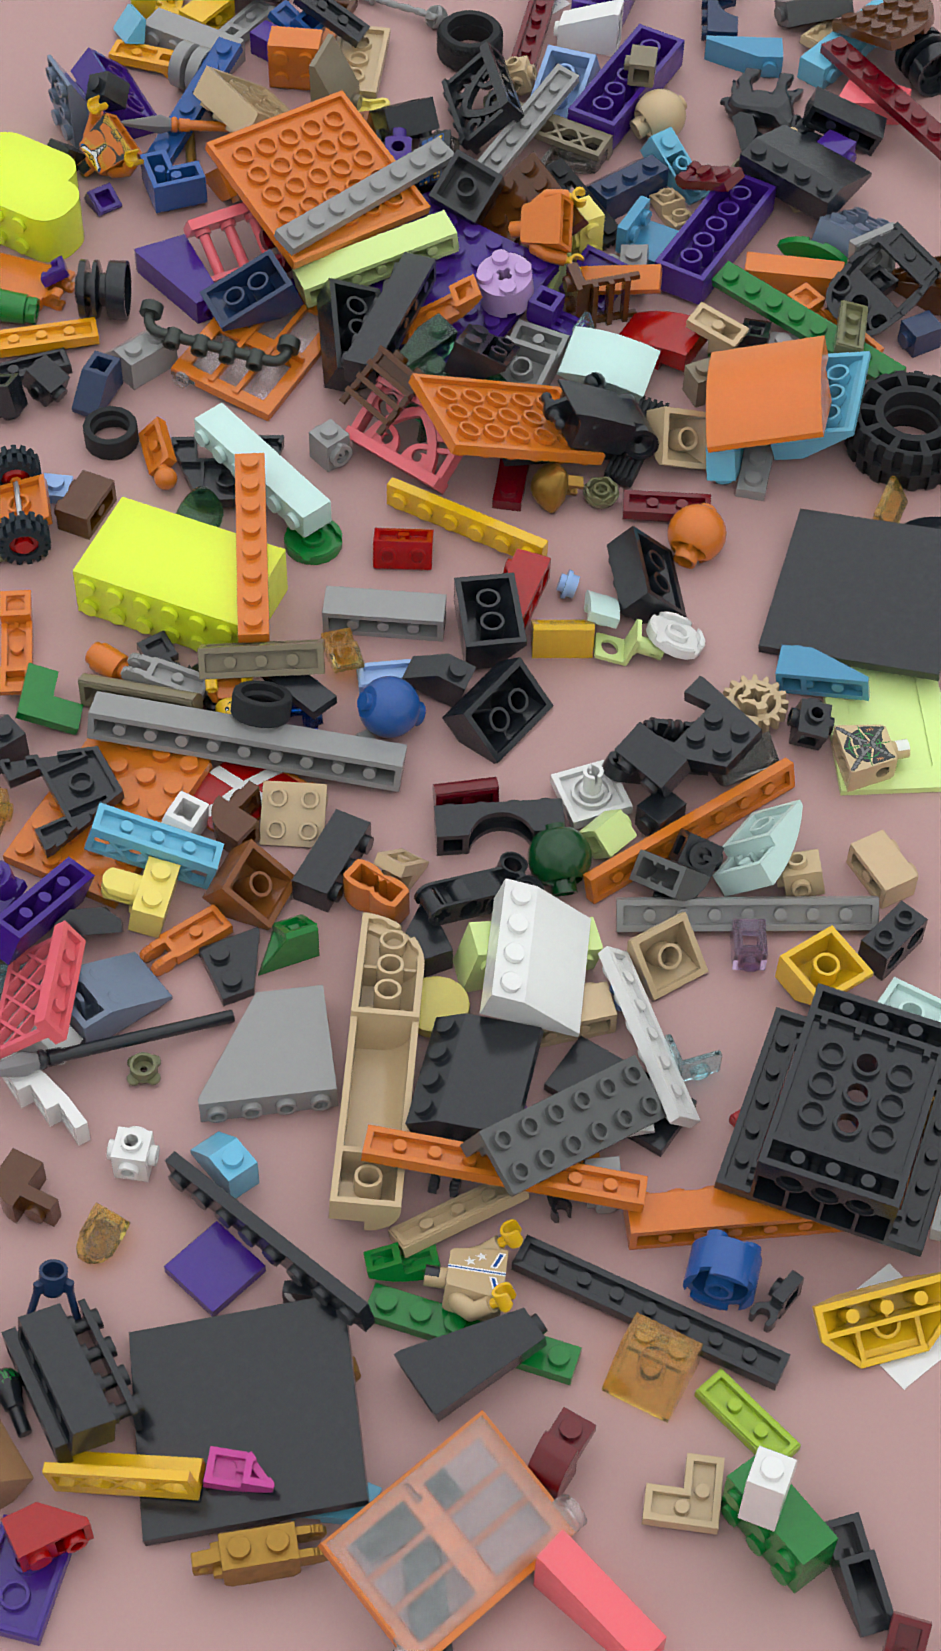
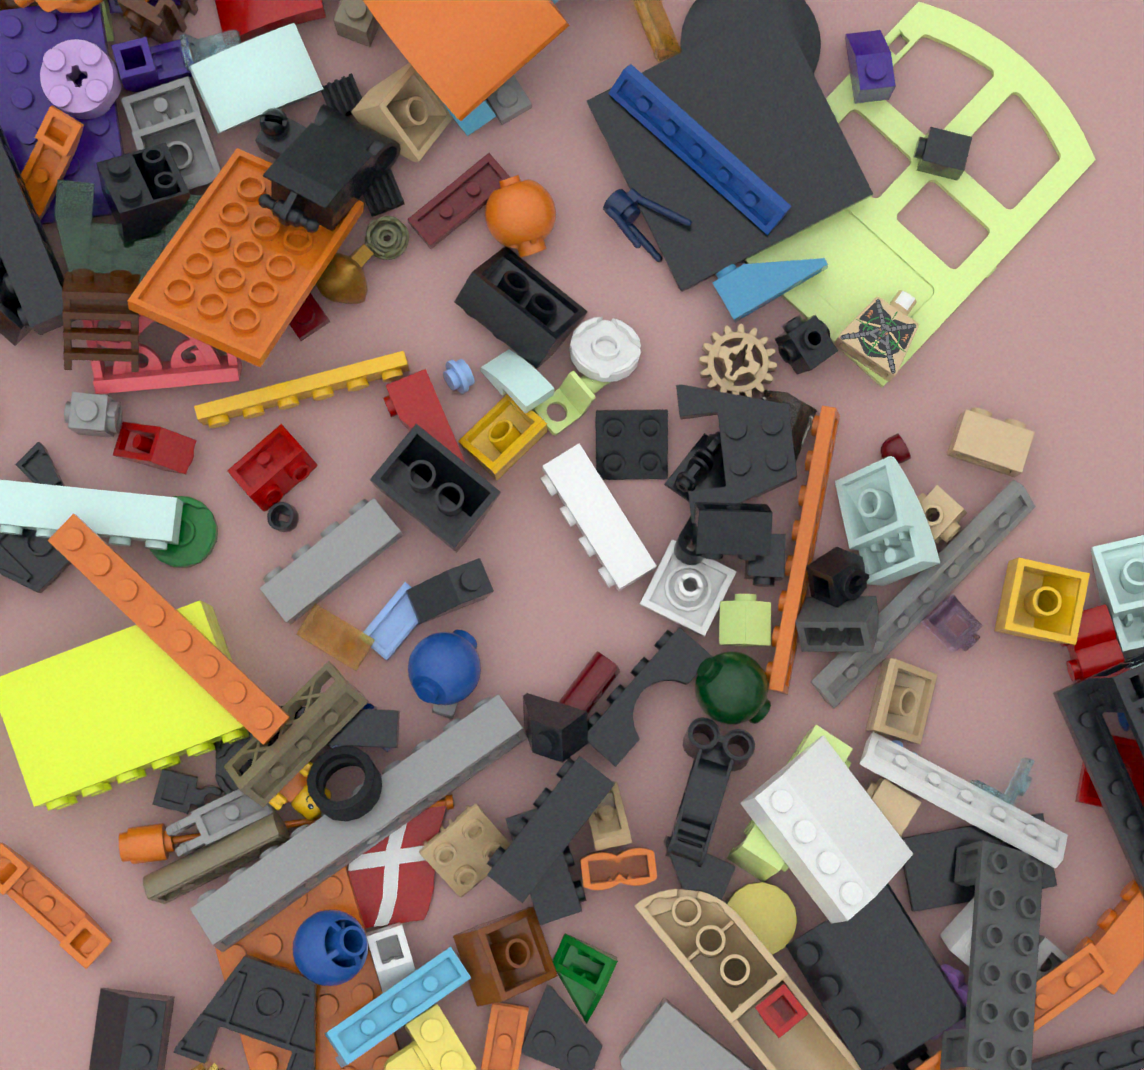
camera: 45 degrees left, 30 degrees up
(40, 705) = (136, 949): green tile -> none
(153, 773) = (330, 947): none -> blue brick
(202, 506) = (57, 611): clear green helmet -> none
(233, 818) = (424, 914): reddish brown brick -> none
(348, 487) = (155, 447): none -> red slope
(358, 826) = (550, 829): none -> black brick
(381, 573) = (284, 509): none -> black hinge
(391, 1035) = (781, 1011): none -> red brick
(422, 783) = (554, 728): none -> black slope
(498, 710) = (530, 574): black slope -> none
(573, 712) = (598, 517): none -> white brick
(639, 693) = (632, 444): none -> black hinge
(765, 579) = (624, 211): none -> dark blue plant
(811, 826) = (895, 447): none -> dark red hinge
(845, 572) = (699, 149): none -> blue plate
(892, 939) = (1061, 512): black brick -> none

